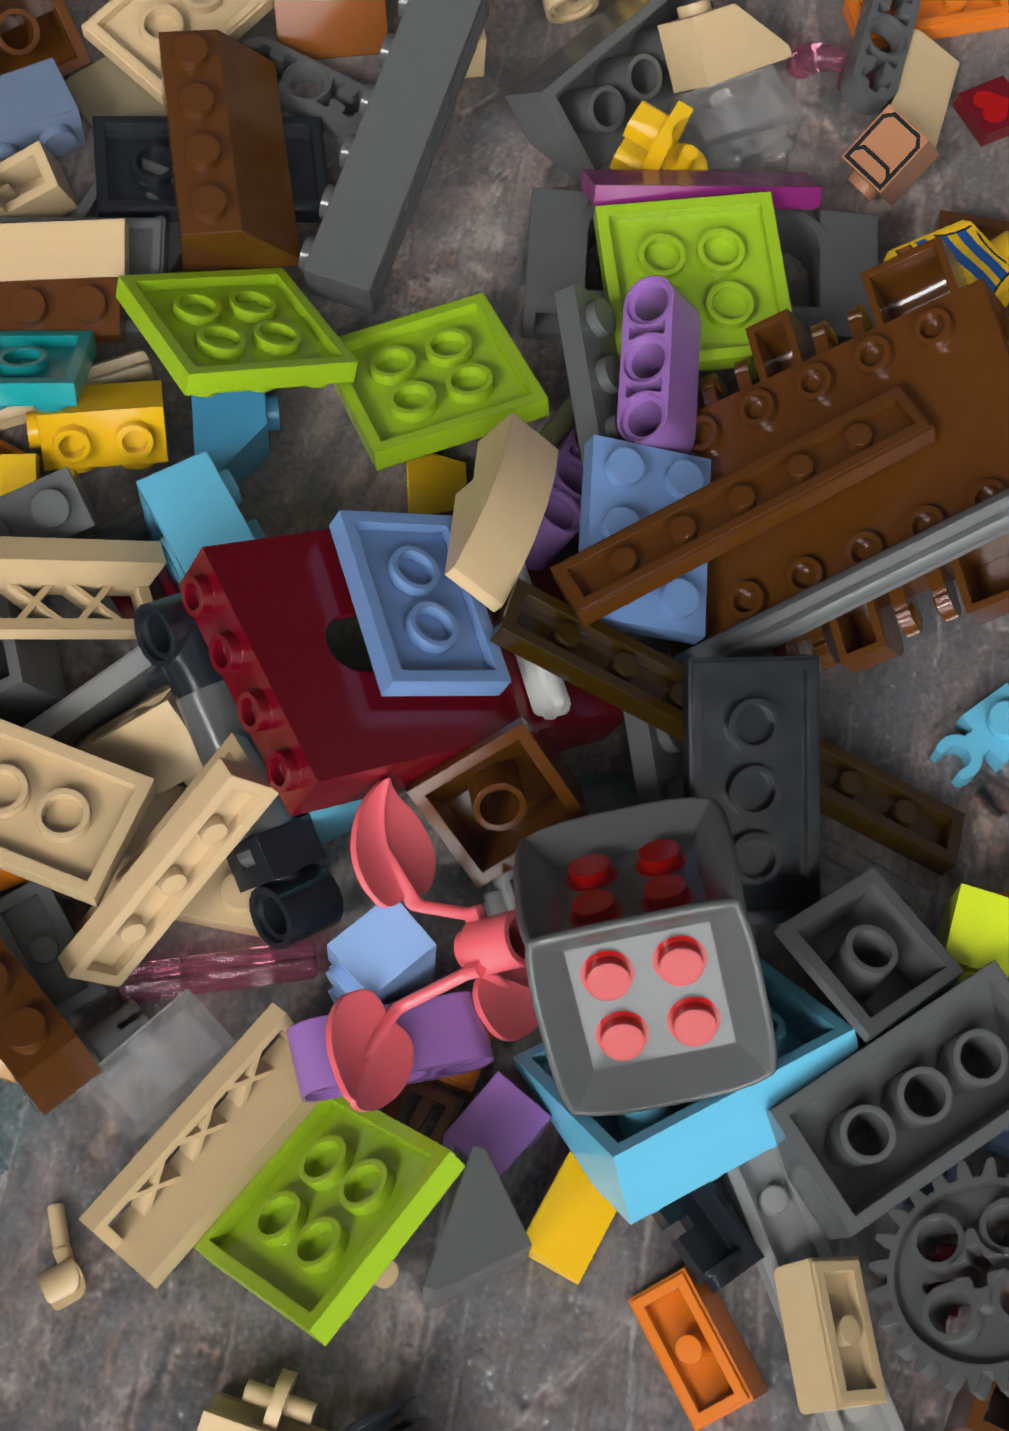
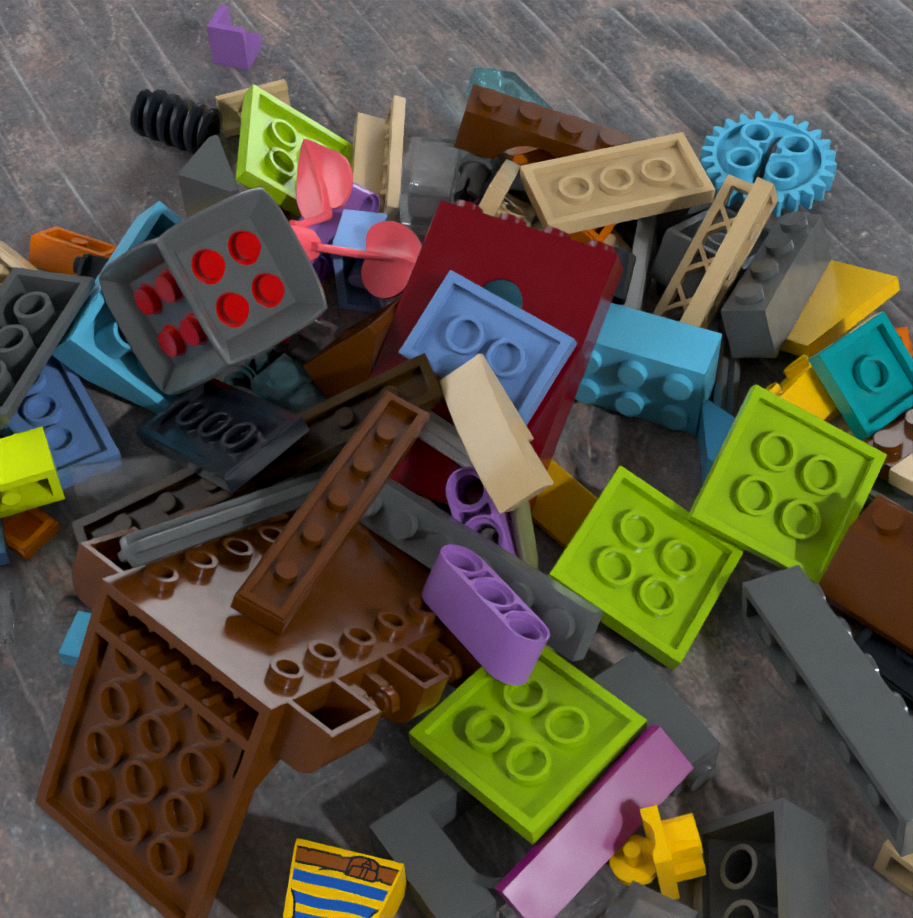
camera: 150 degrees right, 15 degrees down
(64, 1281) = (410, 114): tan hand -> none
(624, 486) = (414, 520): medium blue plate -> none
(870, 954) = (90, 391): dark grey slope -> none

